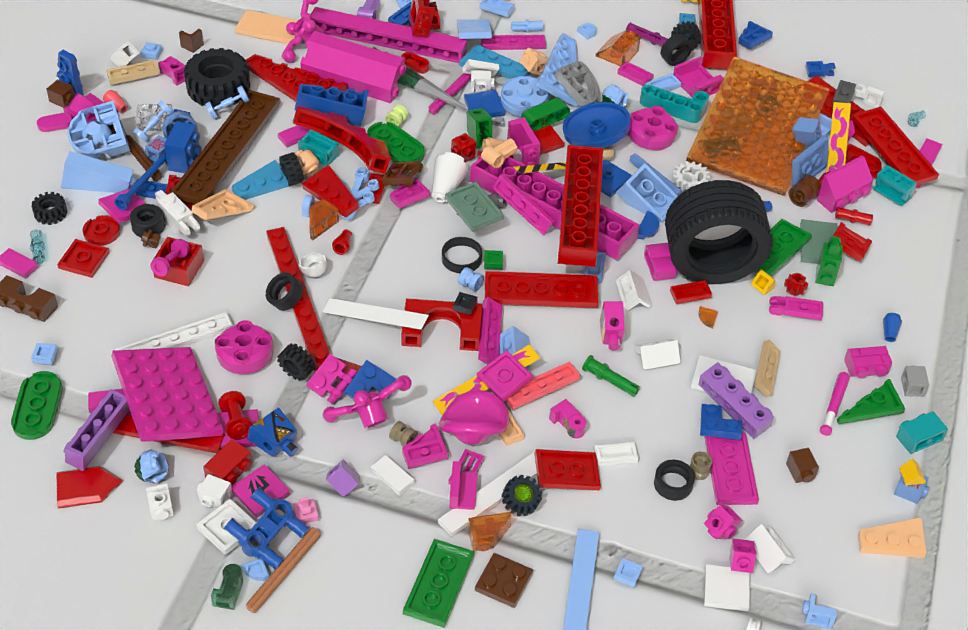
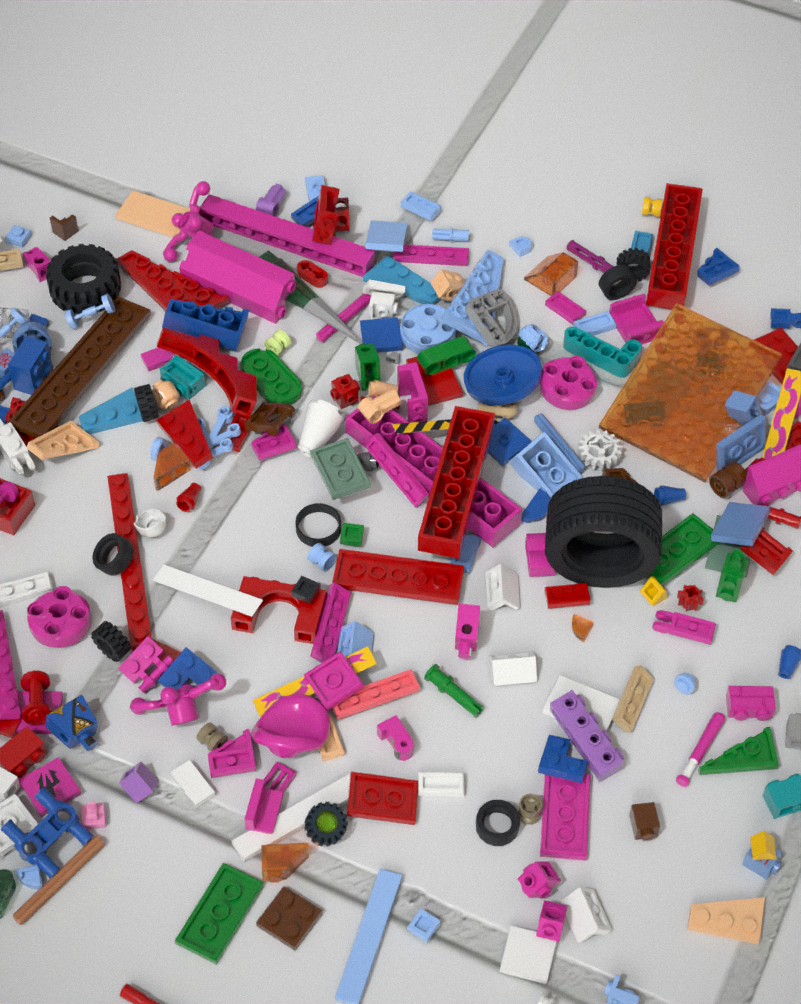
camera: 10 degrees right, 5 degrees up
(808, 352) = (685, 683): none -> light blue plate
(825, 222) = (740, 524): none -> medium blue tile

